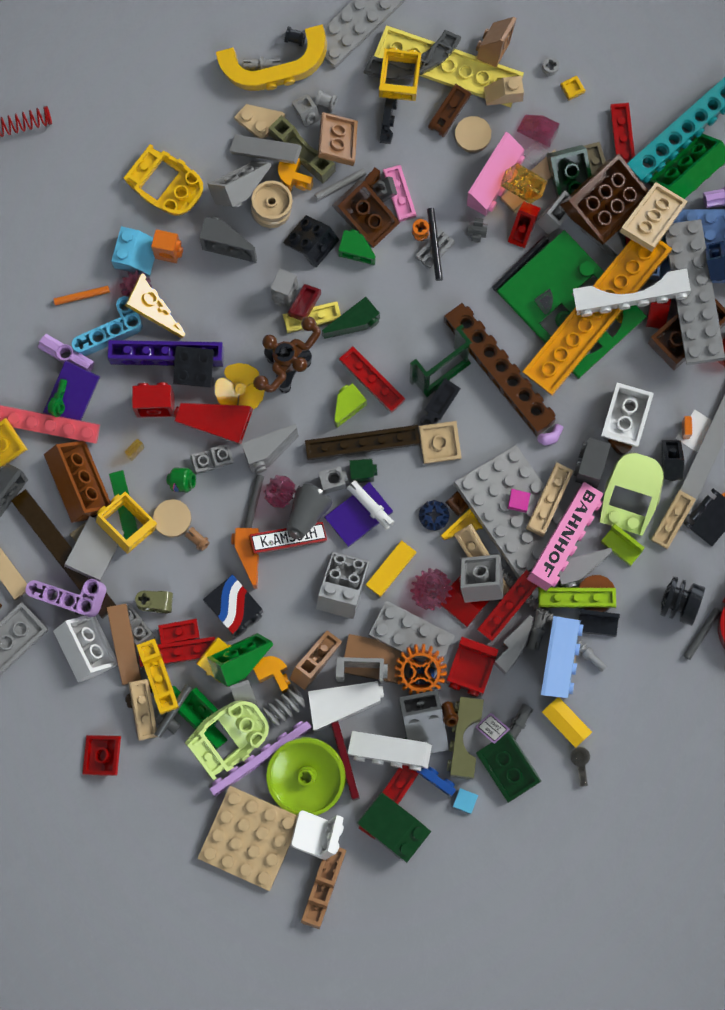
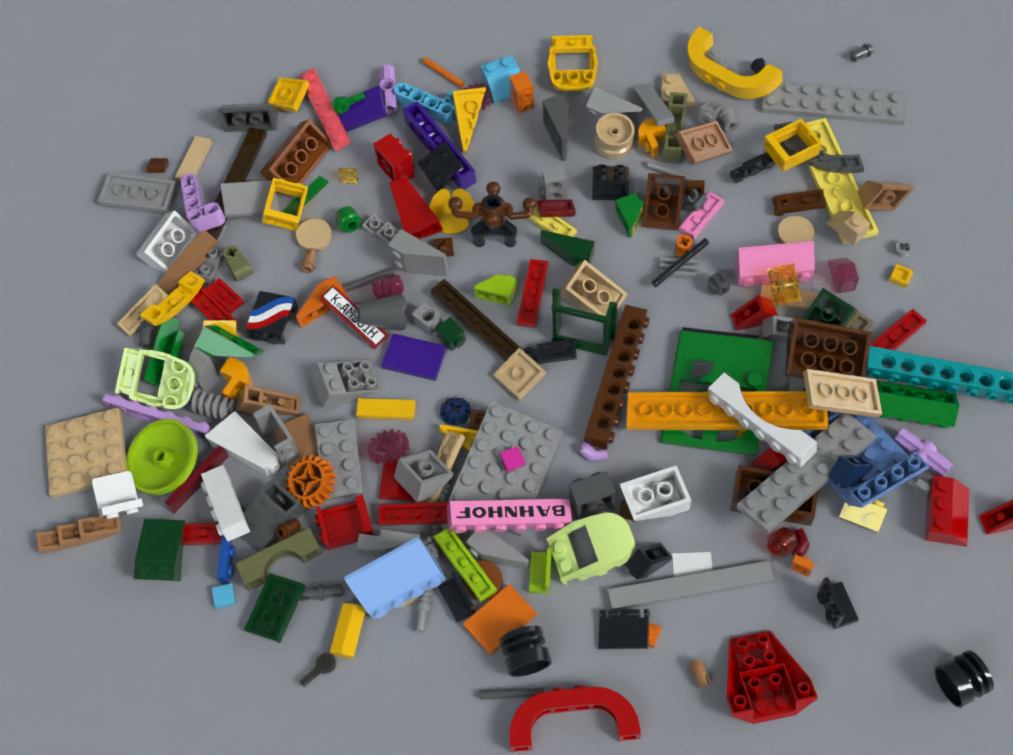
camera: 55 degrees right, 15 degrees down
(101, 755) = (88, 307): red slope -> none
(171, 714) = (151, 329): dark grey piece -> none
(270, 419) = (444, 245): none -> reddish brown tile
(375, 510) = (423, 363): white pin -> none
(408, 332) = (591, 290): none -> tan slope
(492, 728) = (300, 572): sticker -> none
(549, 499) = (532, 484): tan tile -> none
(637, 602) = (499, 616): none -> orange tile
(673, 519) = (596, 597): tan tile -> none
(686, 427) = (686, 553): orange tile -> none

